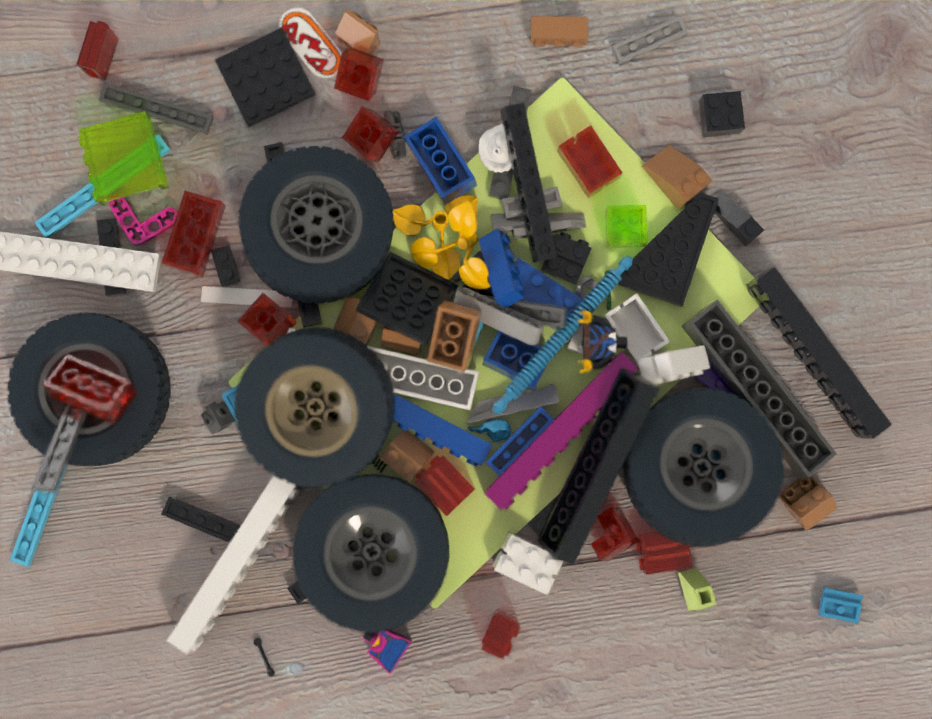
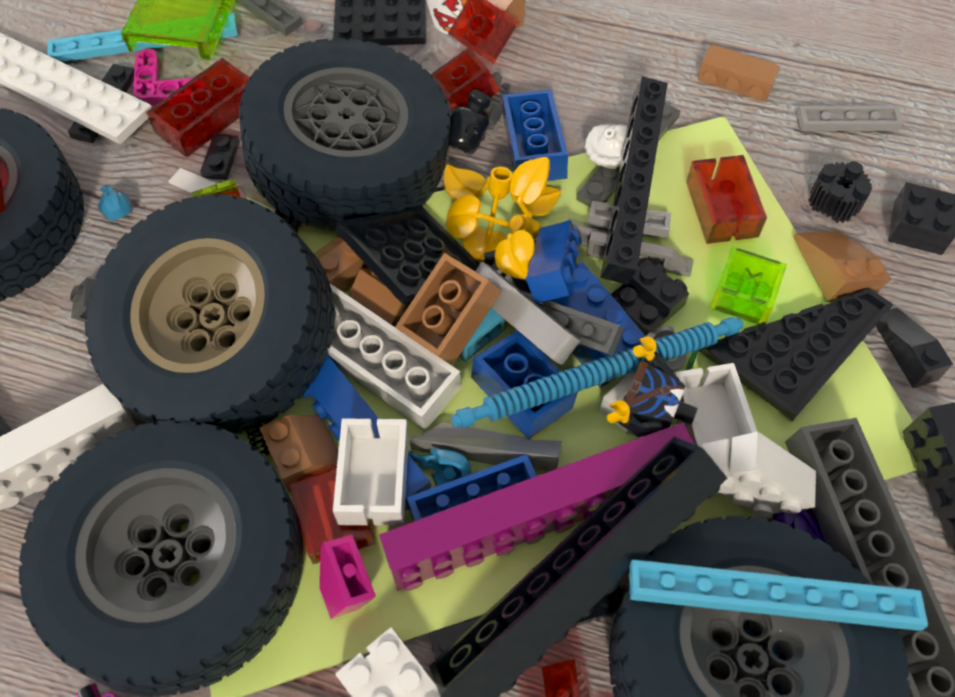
camera: 25 degrees right, 25 degrees down
(179, 339) = (114, 204): none -> dark azure piece
(247, 302) = (215, 188): none -> clear neon green piece
(389, 167) = (468, 123): none -> black piece
(461, 458) = (371, 472): none -> white piece
(472, 519) = (343, 577): none -> dark pink slope
(668, 107) = (840, 190): none -> black brick
(704, 437) = (777, 595): none -> medium azure plate

